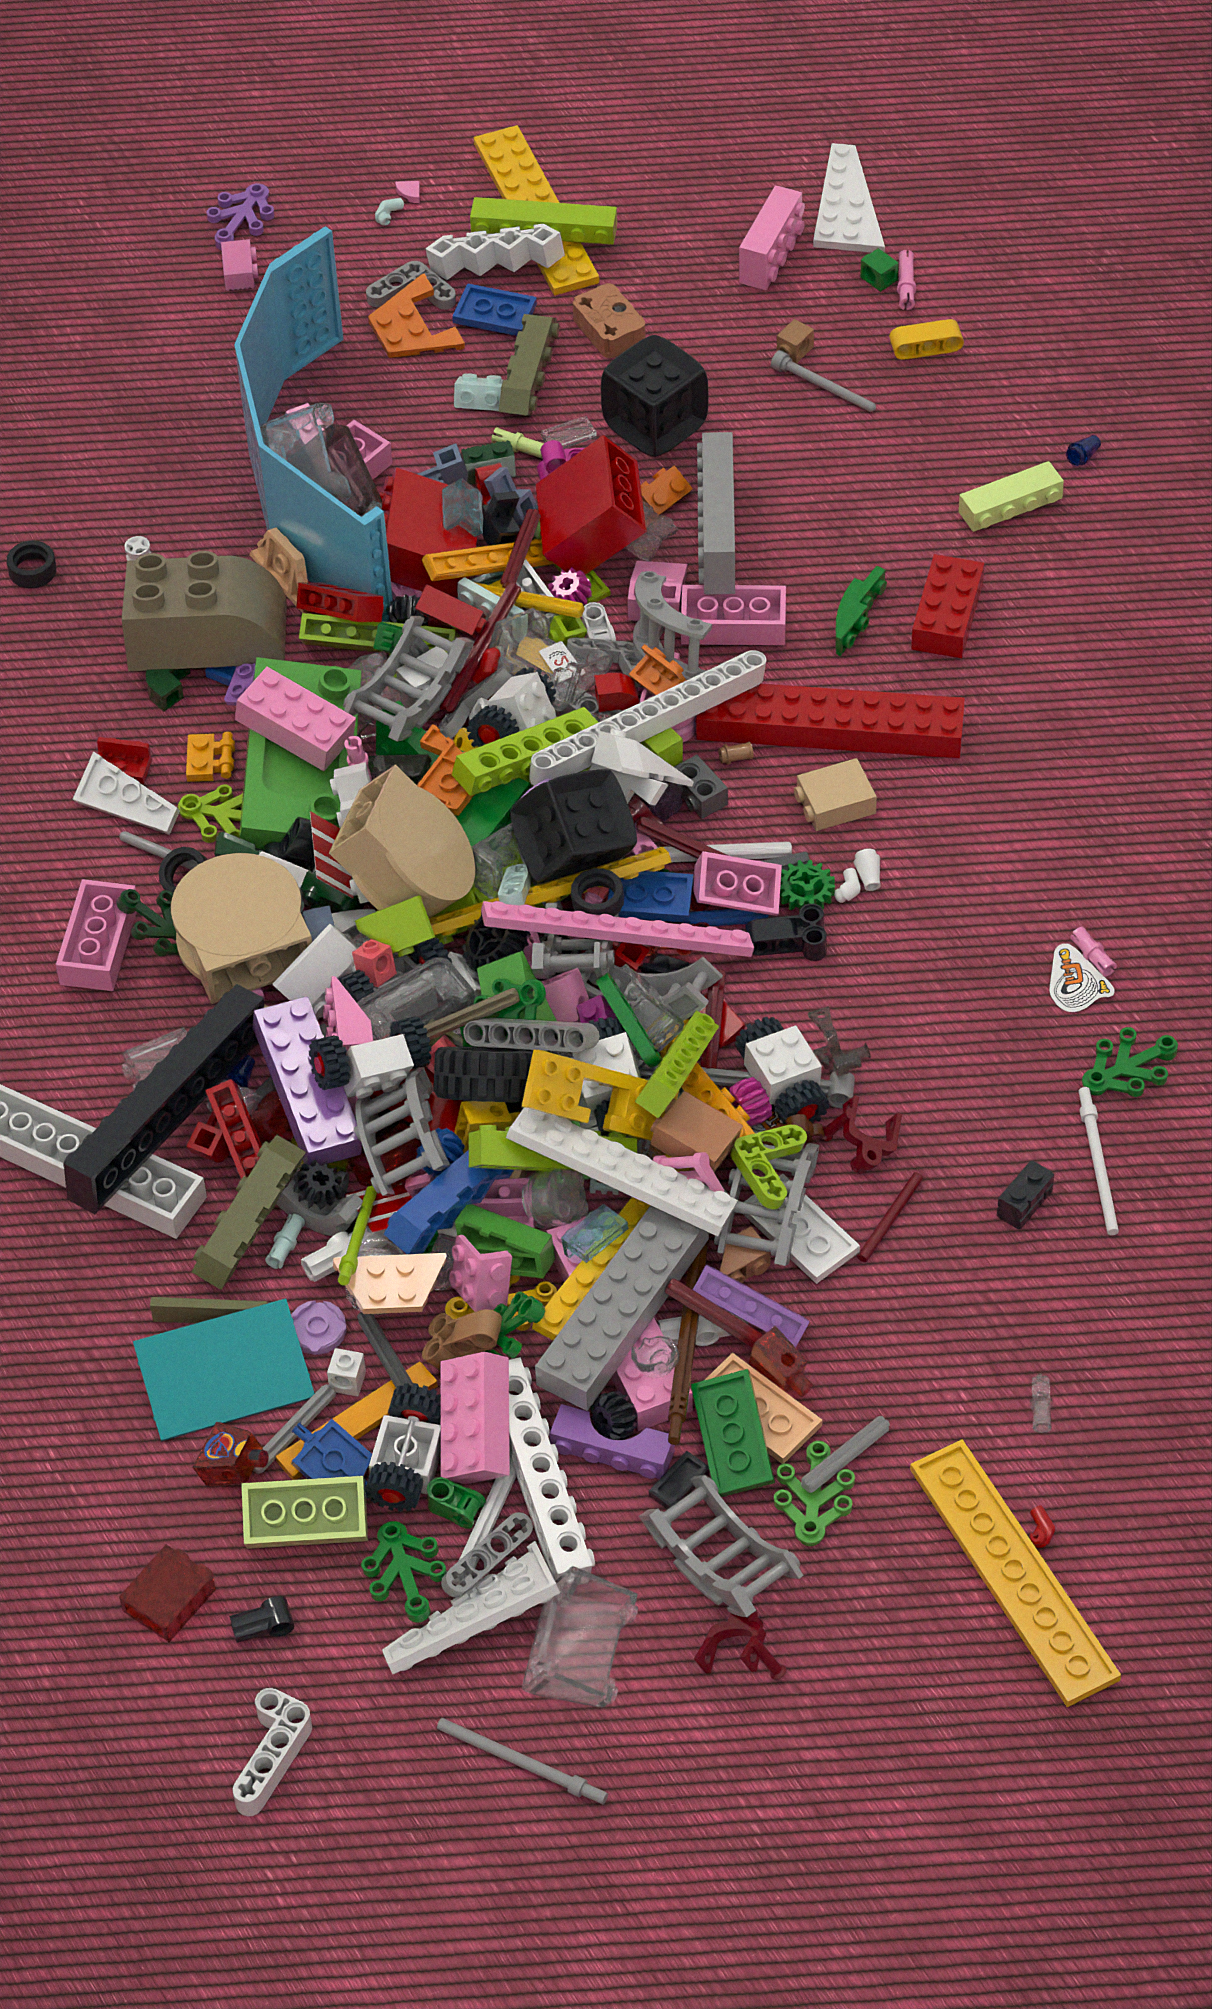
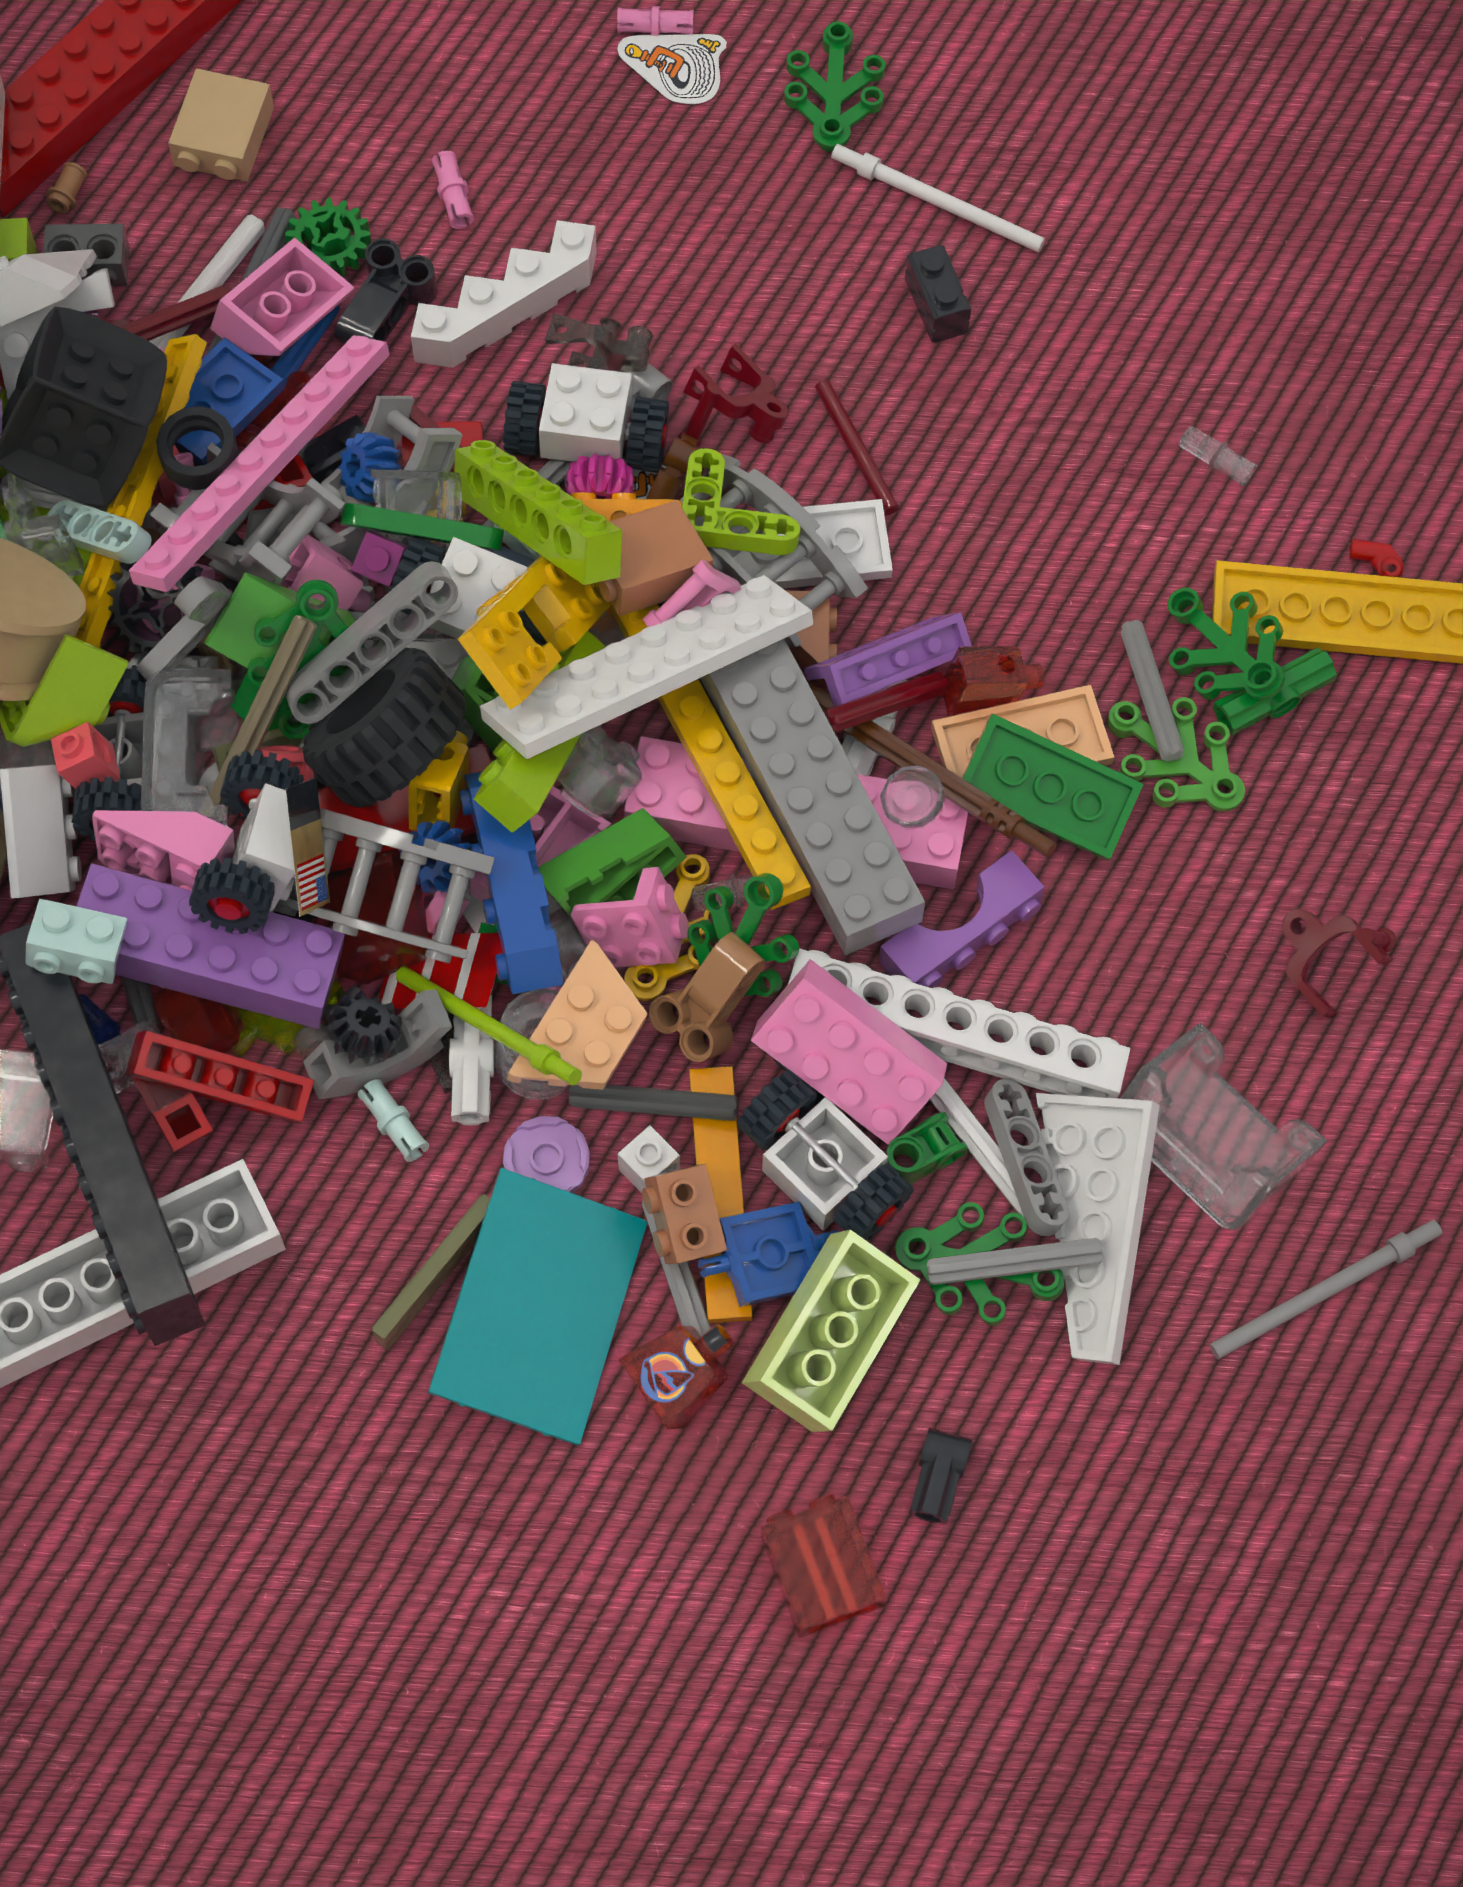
camera: 60 degrees left, 15 degrees up
(246, 1214) = (348, 1155): olive brick -> none
(253, 1012) = (75, 941): none -> light aqua bracket
(267, 1755) = (1135, 1579): white beam -> none
(320, 1397) = (683, 1214): none -> nougat brick
(382, 1076) = (307, 846): none -> sticker
(414, 1580) = (1015, 1261): none -> light grey axle
(486, 948) = (202, 605): none -> light grey beam
(593, 1233) = (693, 758): clear light blue bracket -> none
(614, 1416) = (945, 898): black gear -> none
(664, 977) = (361, 455): none -> blue gear
(676, 1481) = (1063, 894): black tile -> none
(702, 1573) = (1207, 938): light grey fence -> none
(850, 888) = (363, 194): white arm -> none
(852, 994) = (492, 306): none -> white brick
(868, 867) = (354, 160): white cone -> none
(891, 924) = (452, 189): none -> bright pink pin
(893, 1496) = (1228, 649): none -> green plant
(898, 1520) = (1301, 678): none -> green piece

